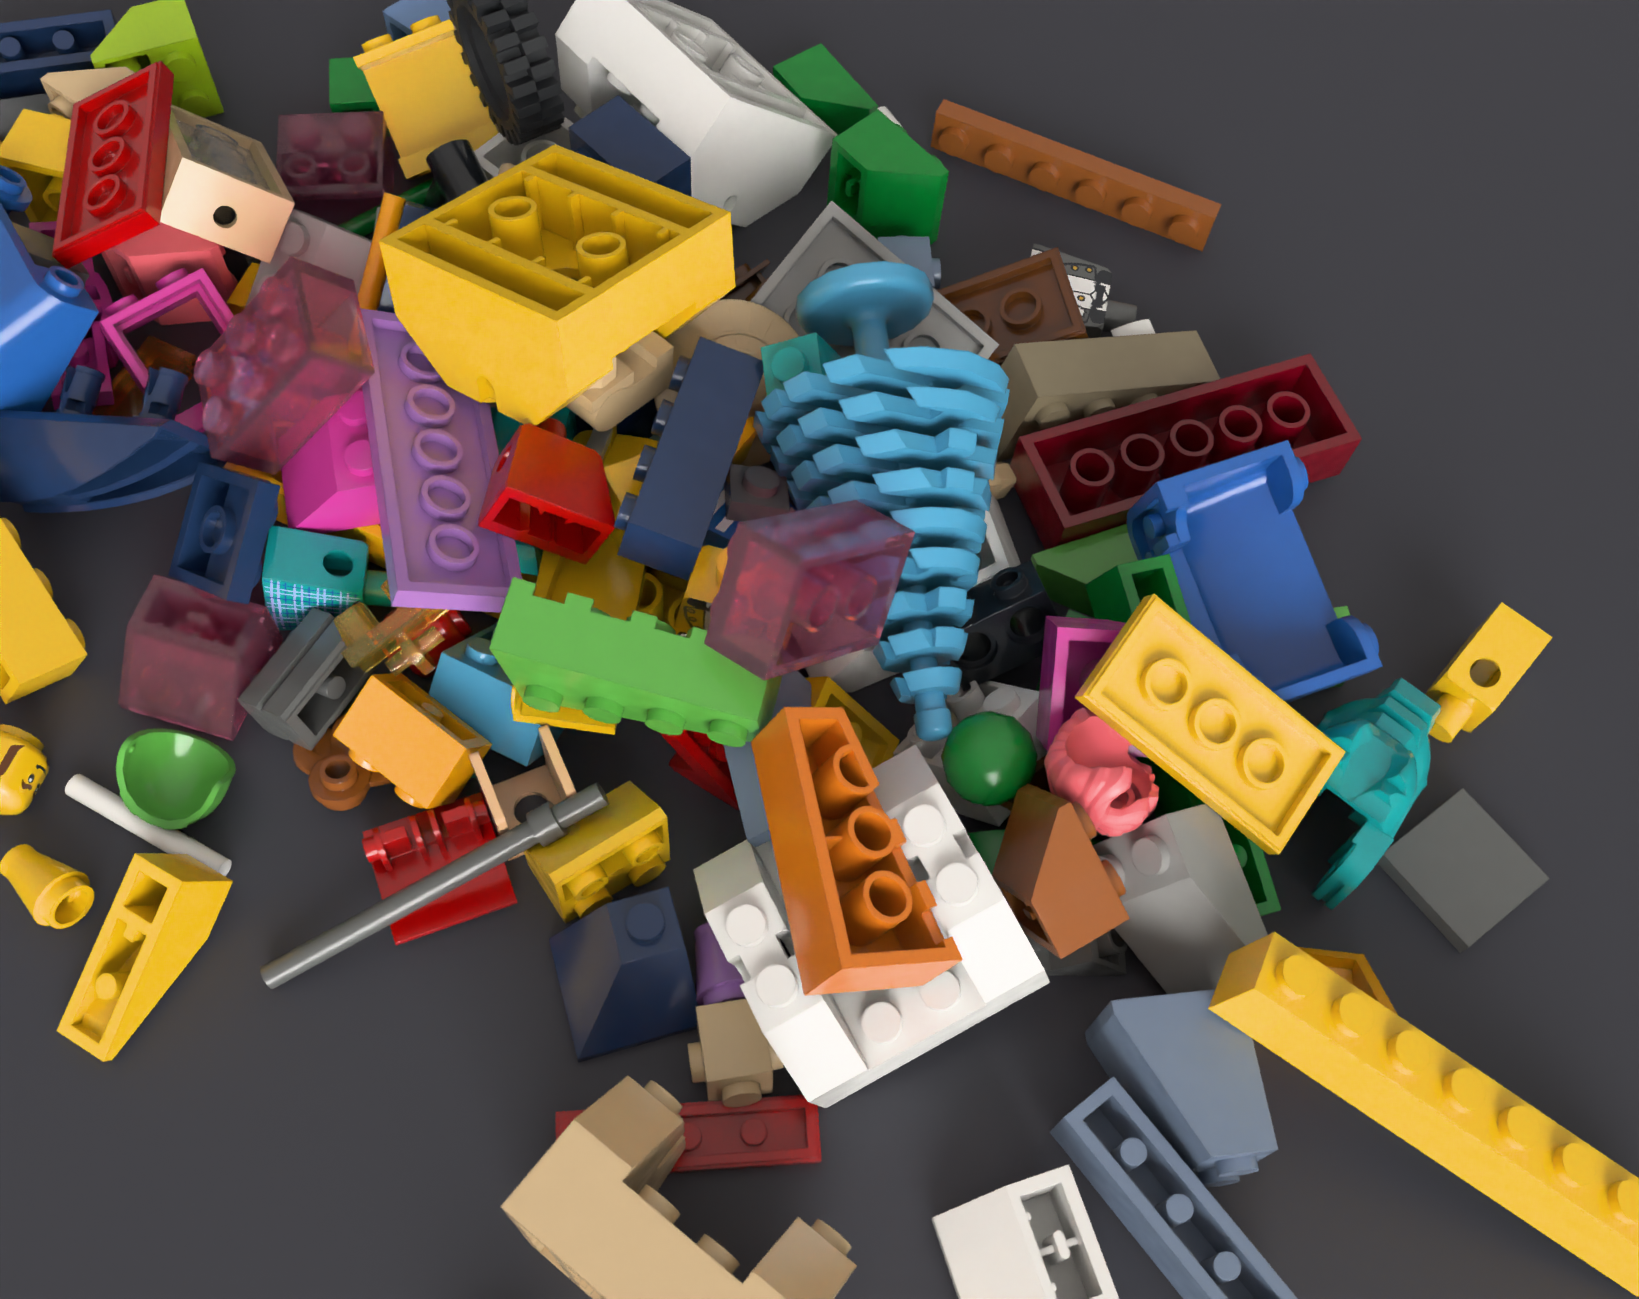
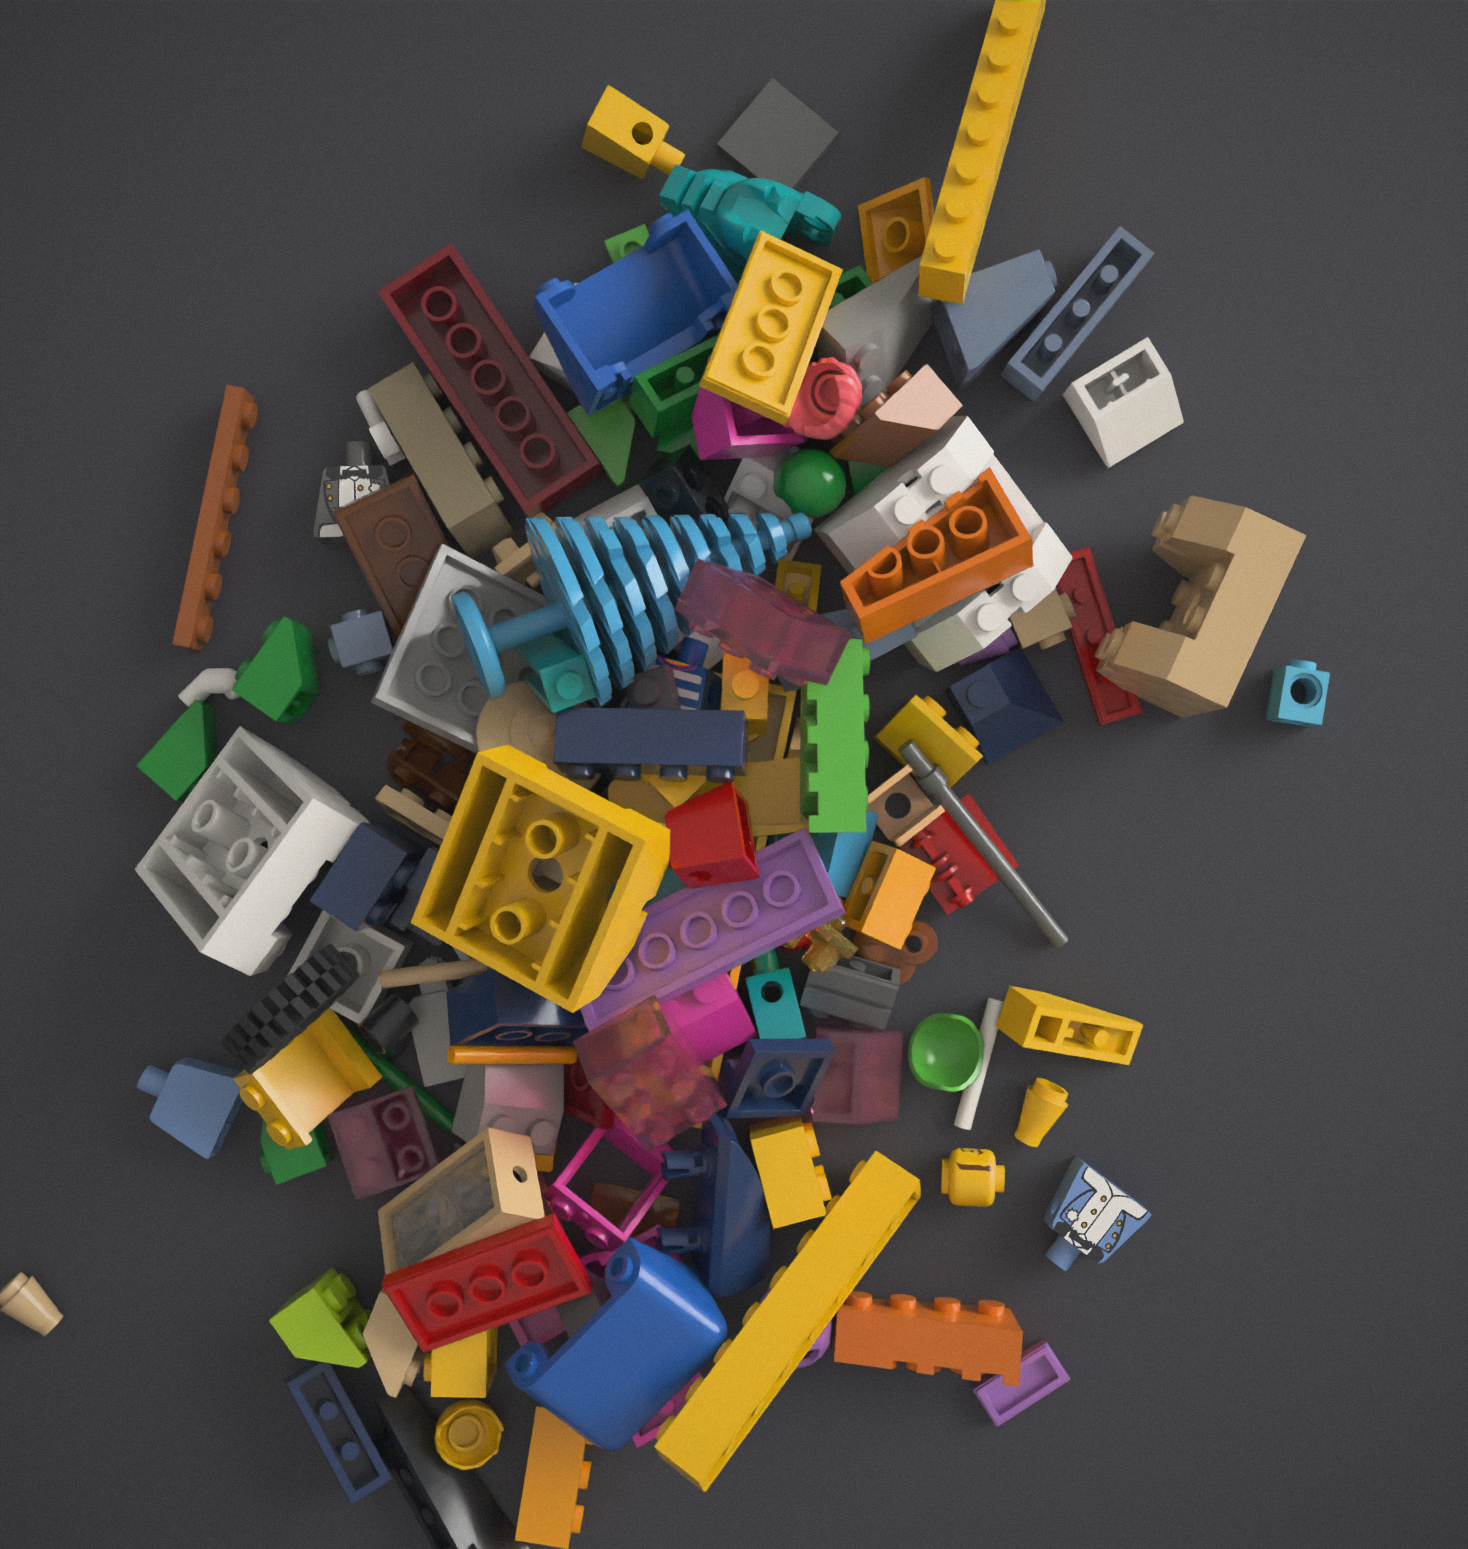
camera: 95 degrees left, 25 degrees up
(102, 538) = (786, 1170): none -> yellow brick

